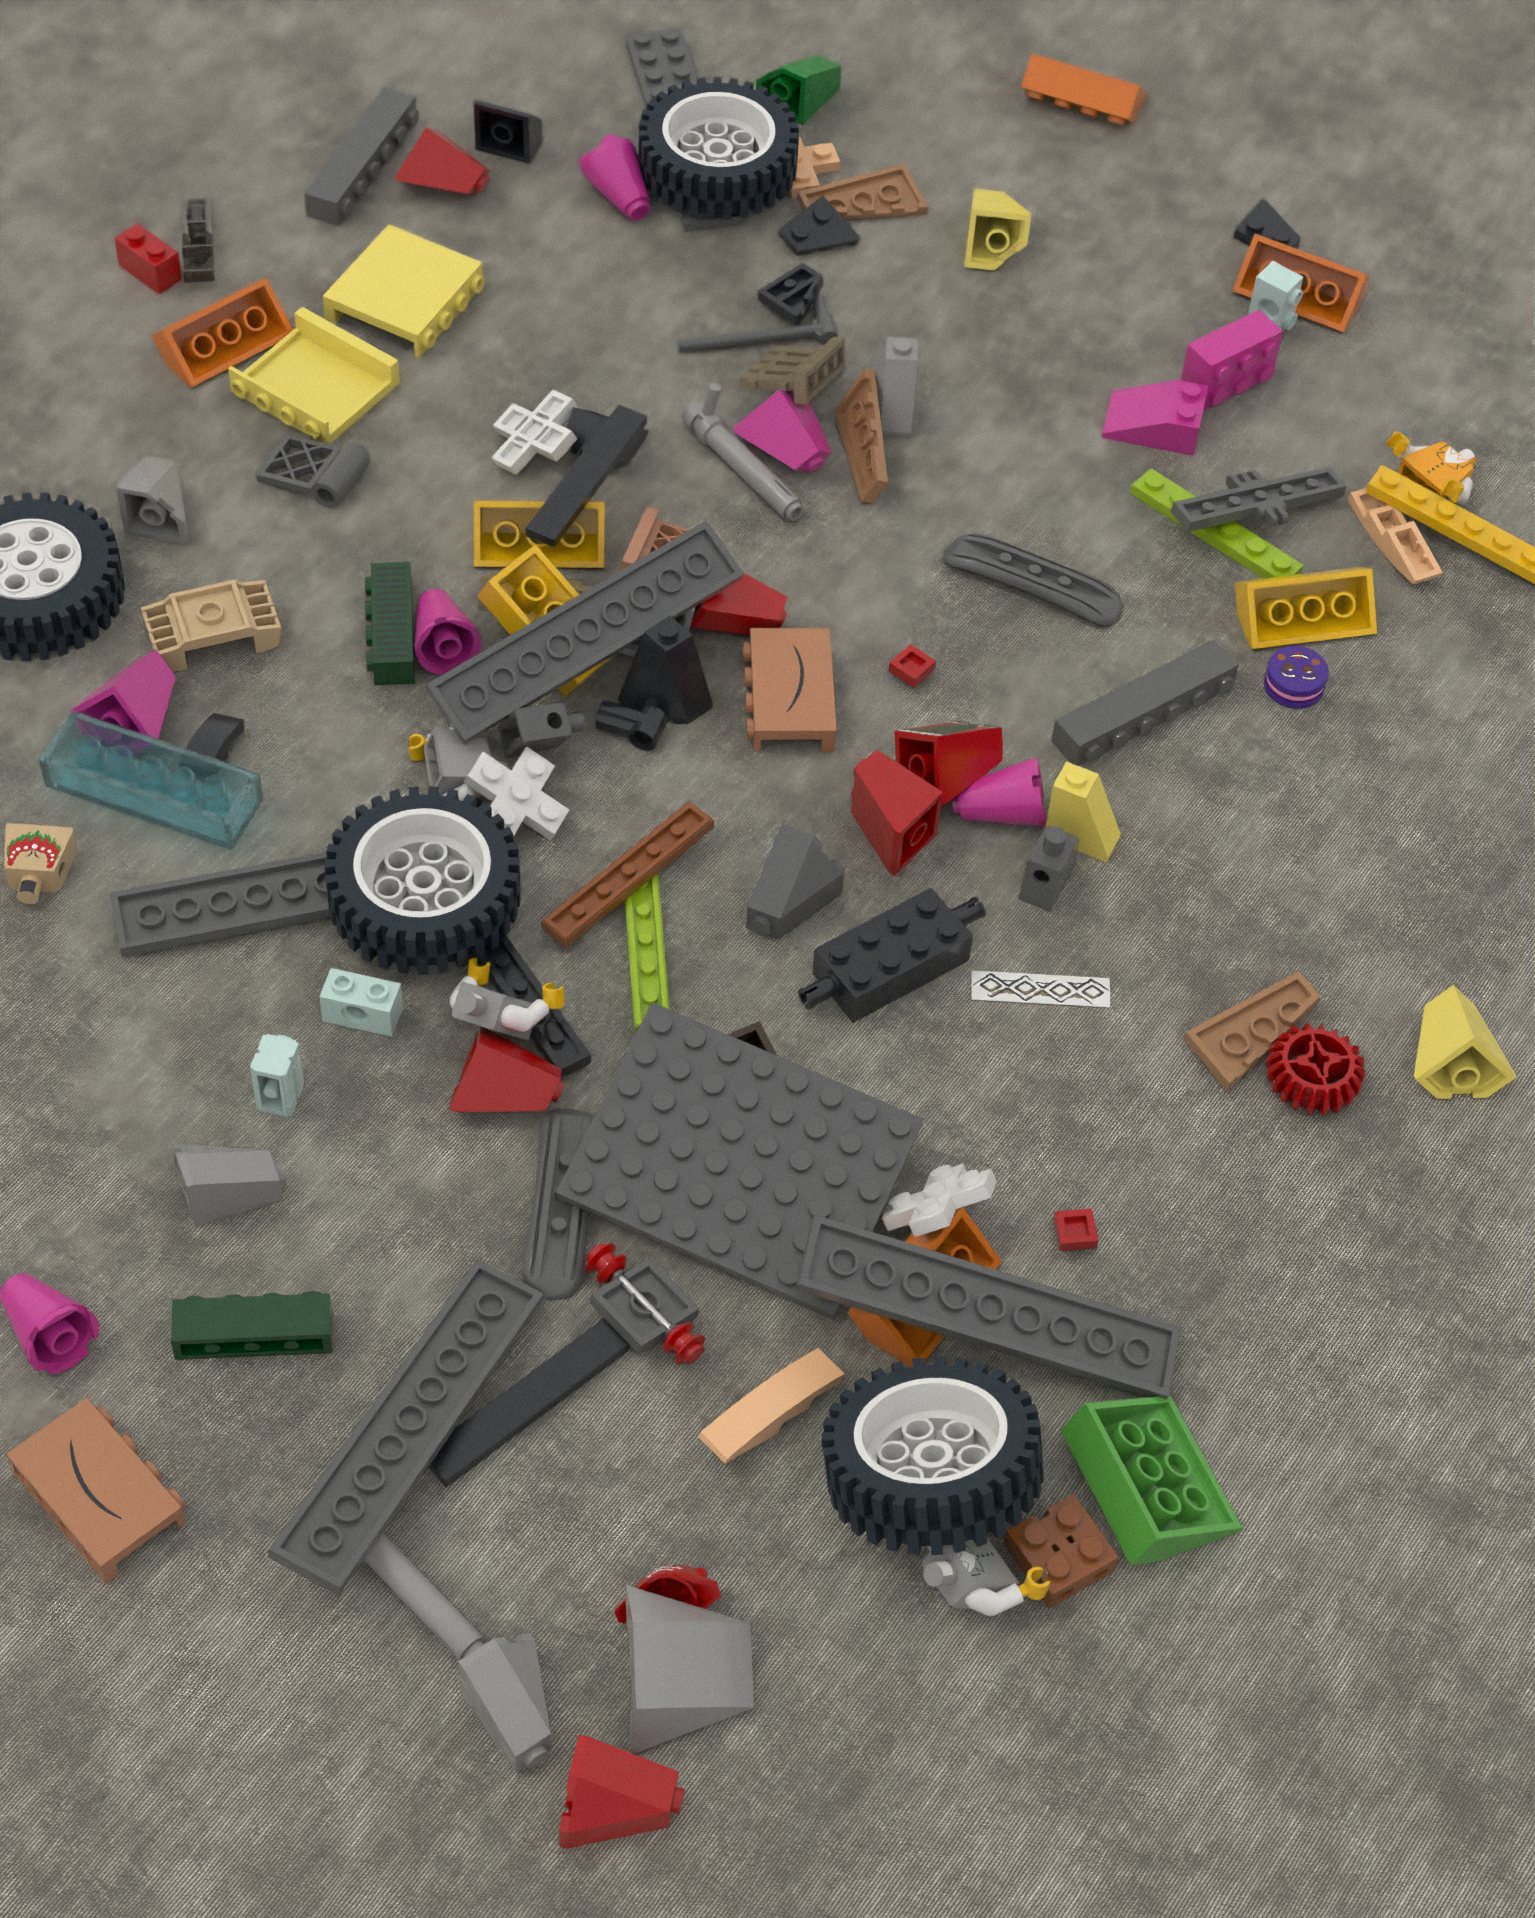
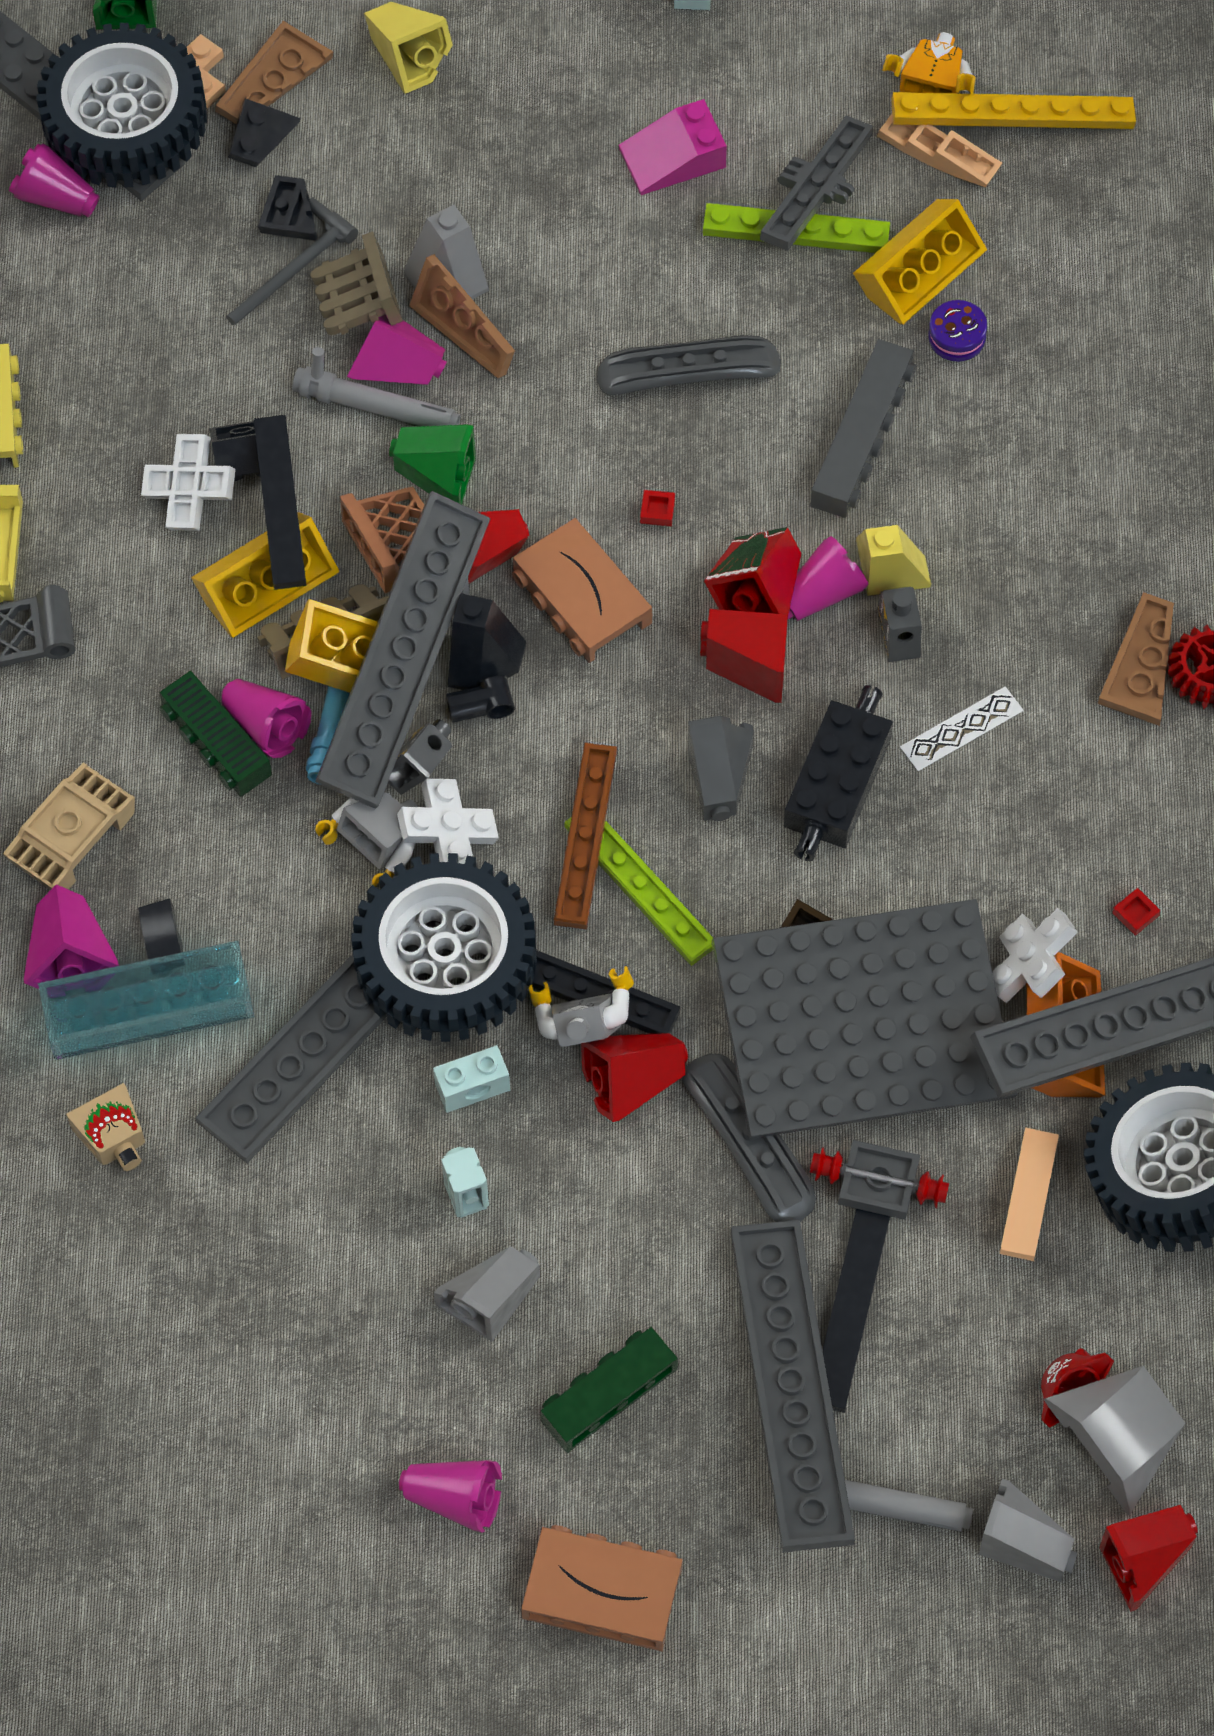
camera: 30 degrees left, 10 degrees up
(755, 527) = (436, 458): none -> green slope
(1233, 357) = (702, 57): dark pink brick -> none

